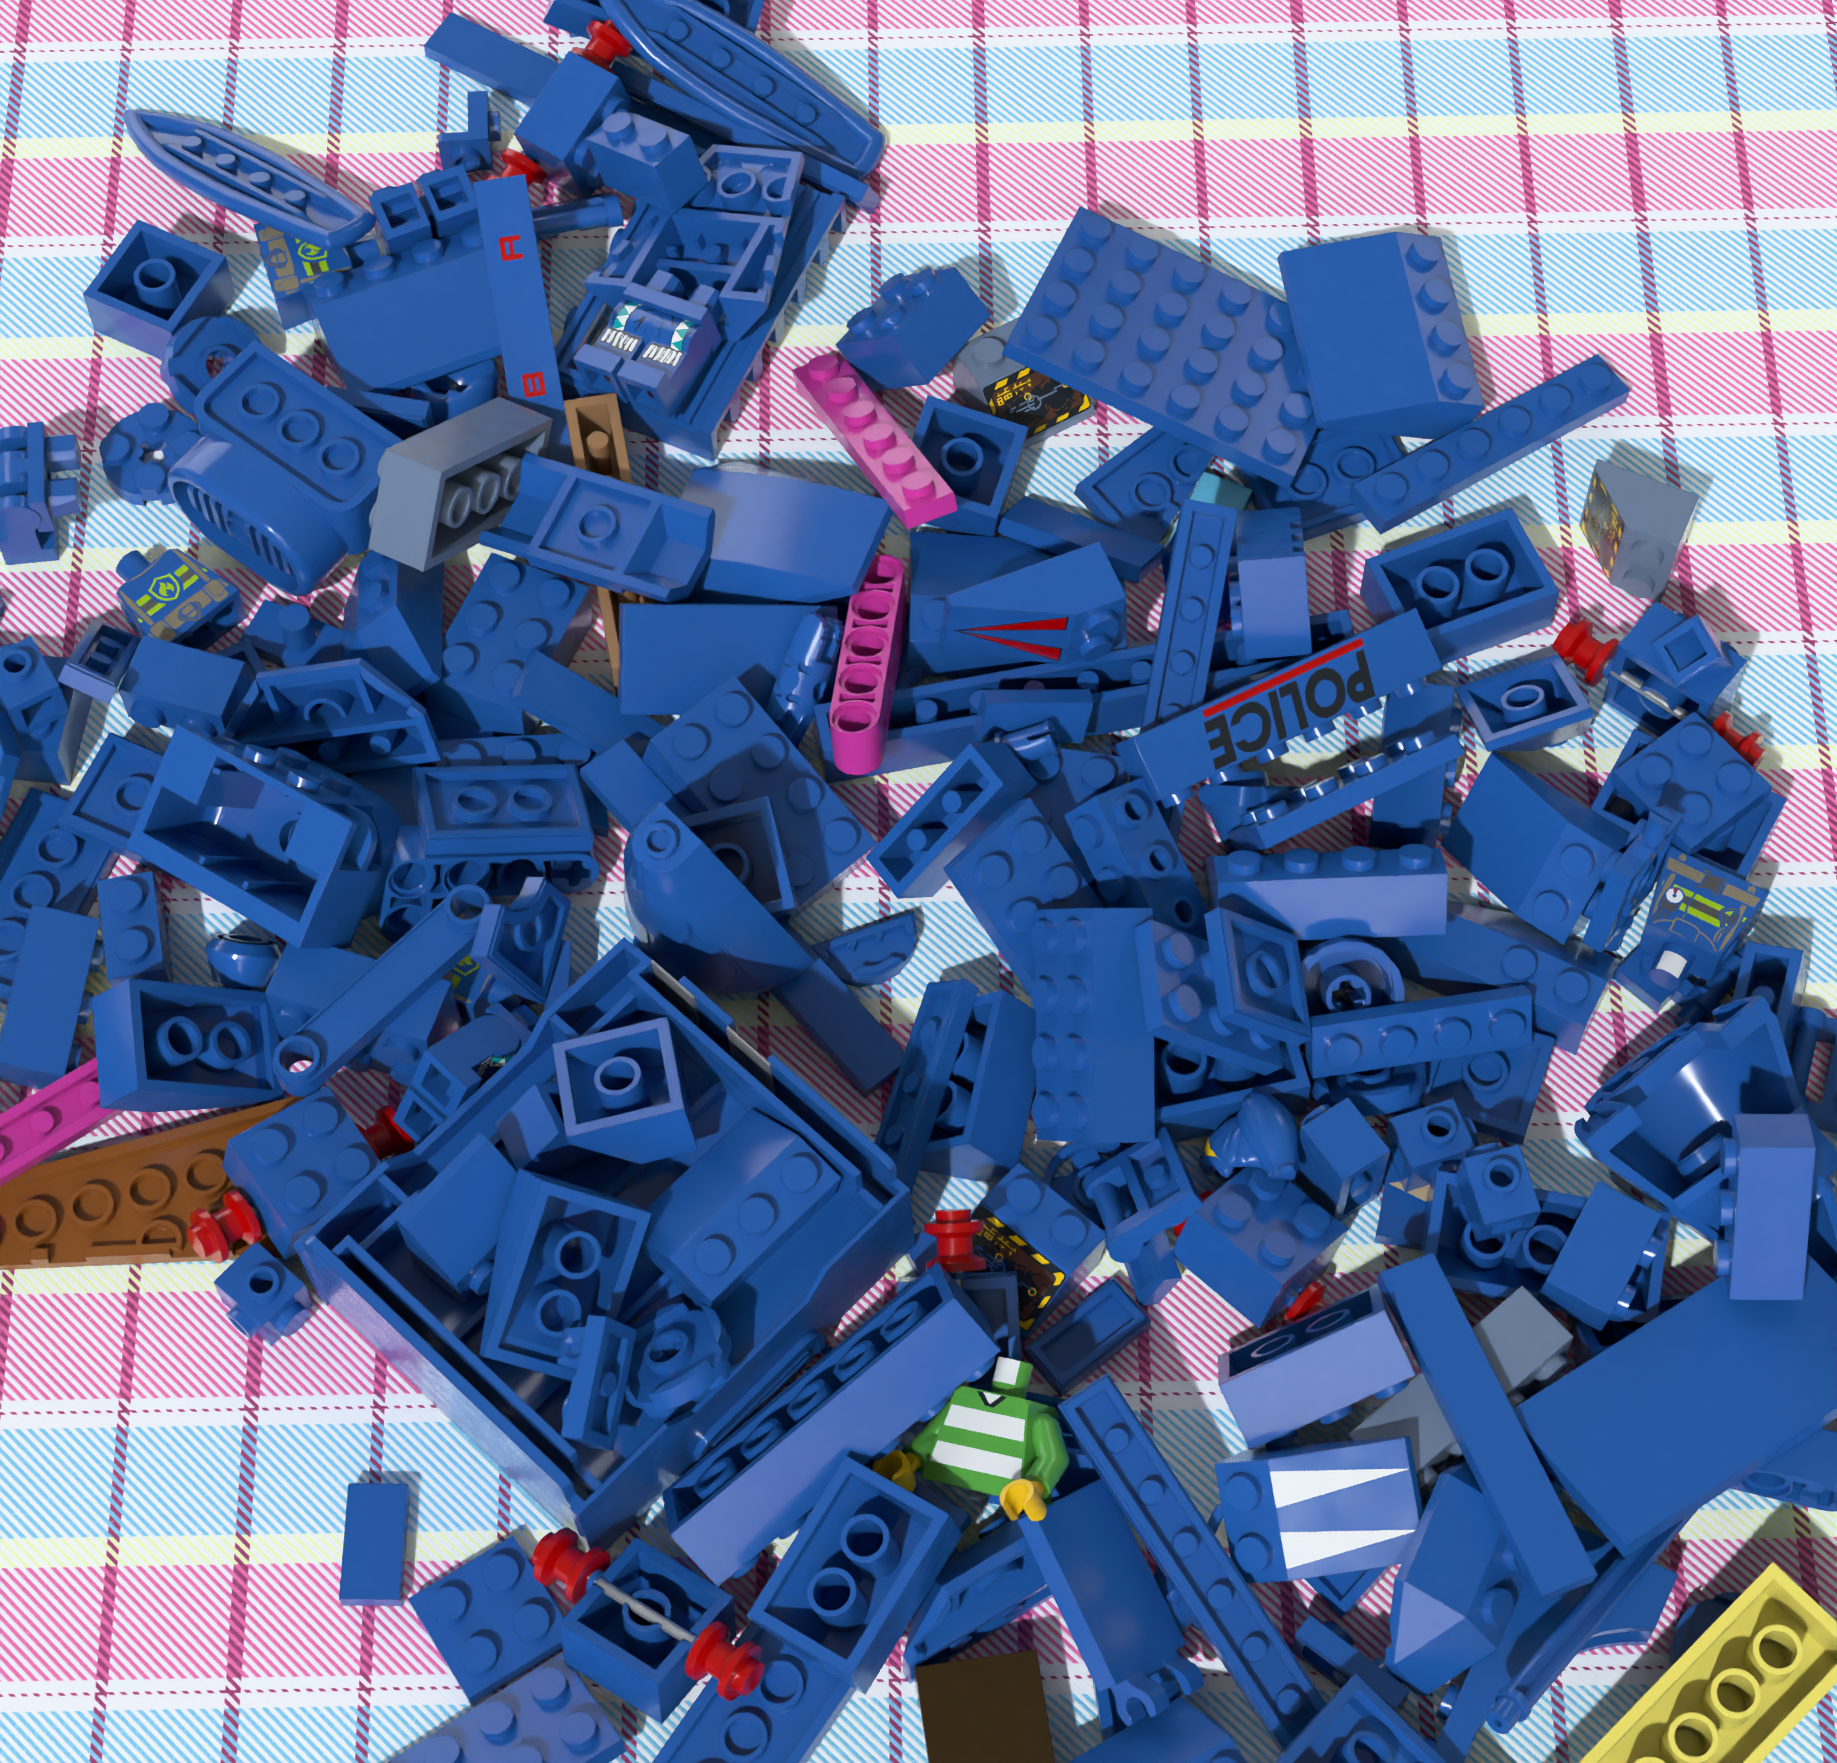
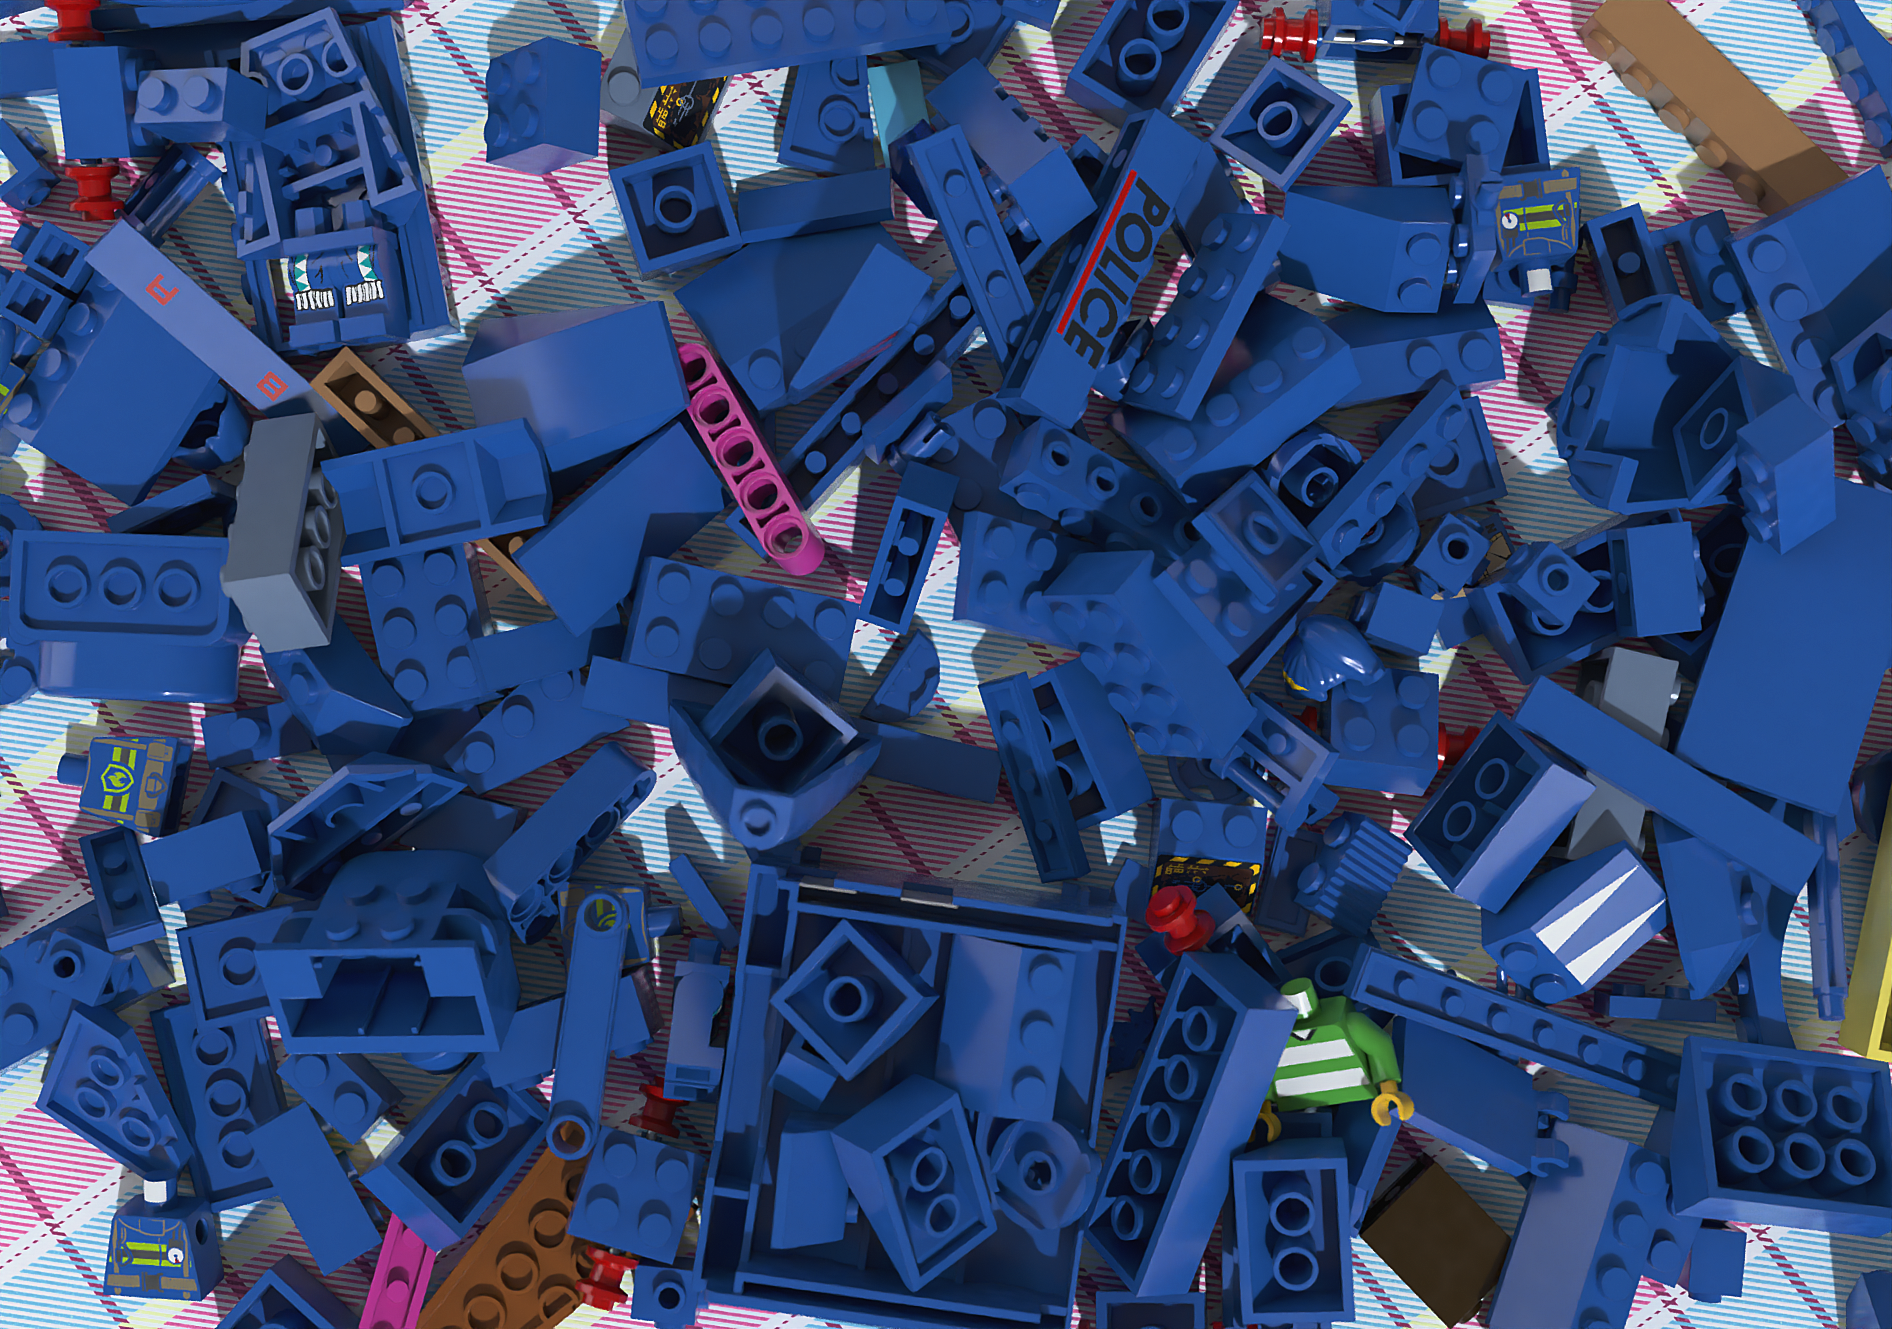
camera: 35 degrees left, 25 degrees up
(501, 809) = (547, 789): blue tile -> none
(523, 939) = (657, 896): blue tile -> none
(602, 1363) = (1004, 1228): blue hinge -> none
(804, 674) = (698, 505): blue hinge -> none
(874, 440) = (595, 244): dark pink plate -> none
(1149, 1351) = (1352, 873): none -> blue brick
(1701, 1159) = (1672, 434): blue tile -> none

